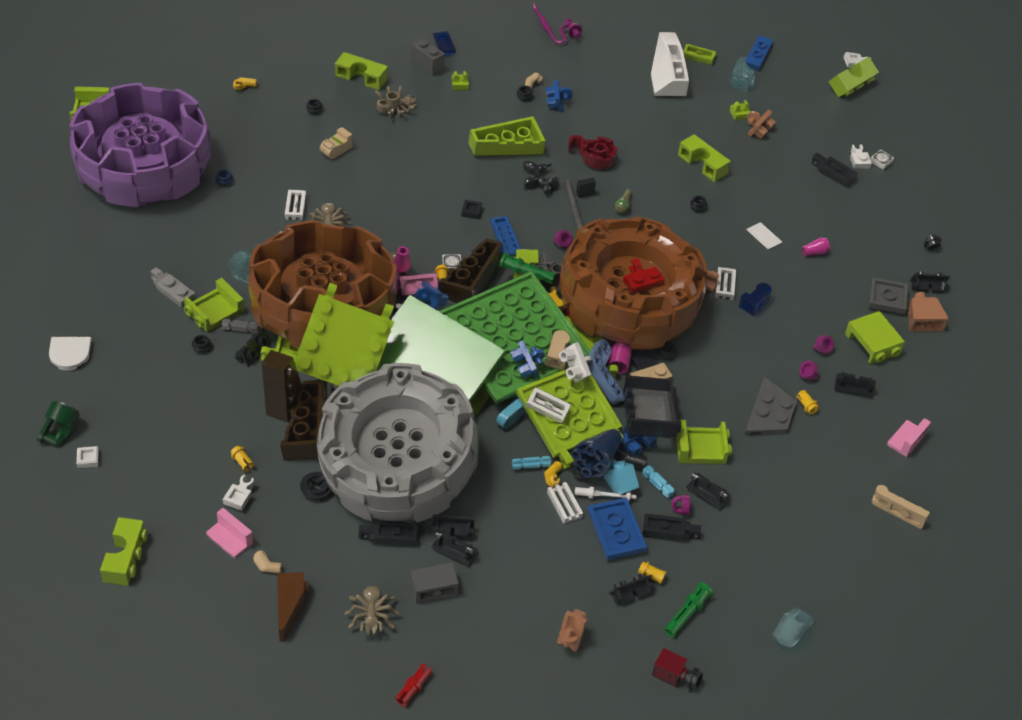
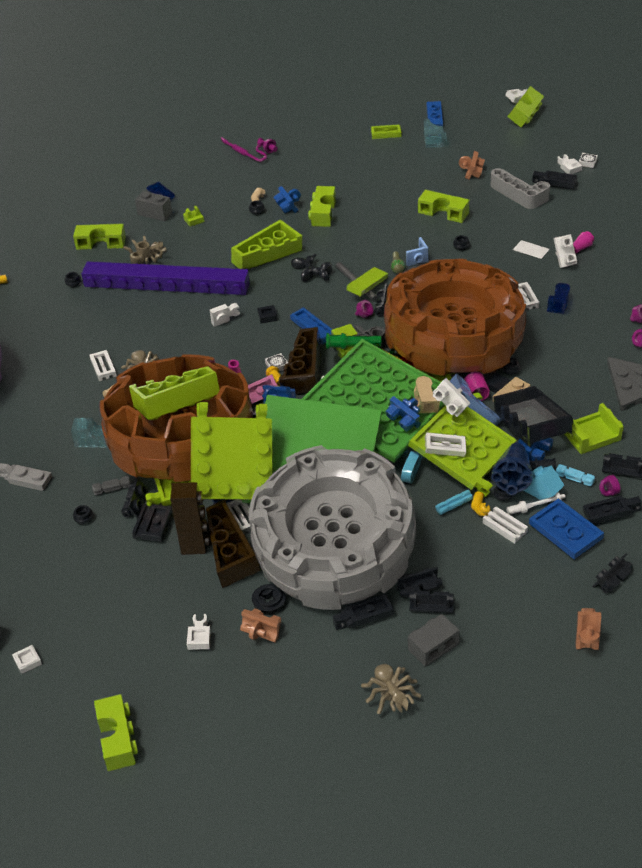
camera: 15 degrees left, 5 degrees down
(215, 306) = (77, 476): lime panel -> none
(224, 177) = (21, 365): dark blue plate -> none
(230, 534) = (211, 673): bright pink panel -> none
(239, 454) = (183, 601): yellow pin -> none
(250, 376) = (152, 522): none -> black plate
(264, 563) = (262, 689): tan arm -> none
(290, 599) = (303, 704): reddish brown slope -> none
(292, 507) = (259, 625): none -> nougat hips
(322, 262) = (174, 392): none -> lime wedge
(337, 144) = (113, 301): tan leg -> none
(399, 137) = (166, 278): none -> dark purple brick
(413, 685) = (471, 741): red pin -> none
(428, 194) = (222, 313): none -> white plate
(582, 119) = (321, 206): none -> lime arch
(582, 211) = (367, 281): none -> lime tile
(586, 187) = (358, 262): black tile -> none
(596, 153) = (349, 232): dark red piece -> none
(642, 279) = (461, 311): red plate -> none
(647, 202) = (417, 255): none -> light blue bracket
(658, 575) = (614, 551): yellow pin -> none
(669, 67) = (369, 147): white wedge -> none
(740, 111) = (449, 161): lime tile -> none
(791, 251) = (565, 251): none -> white hips
(793, 176) = (518, 190): none -> light grey beam

